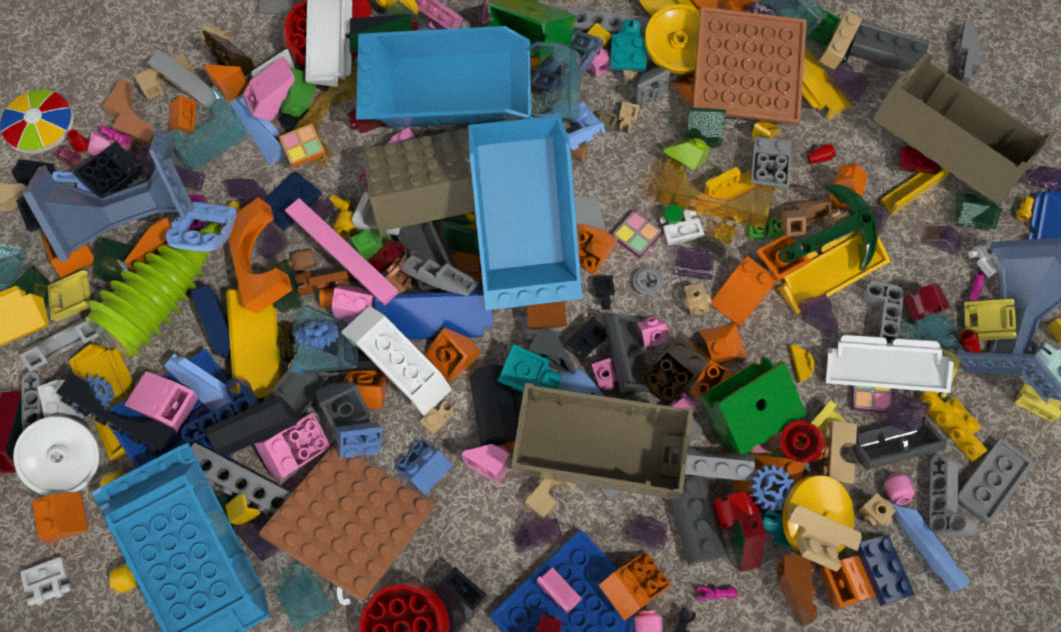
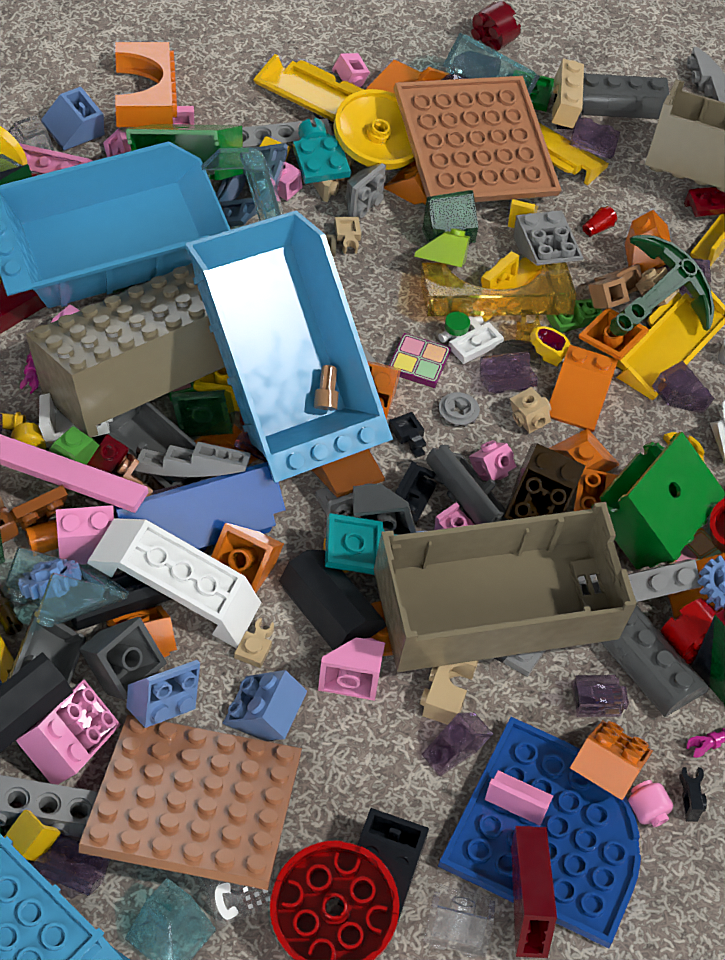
camera: 30 degrees left, 15 degrees down
(547, 253) = (326, 397): none -> medium nougat piece
(734, 250) = (550, 344): none -> yellow rock

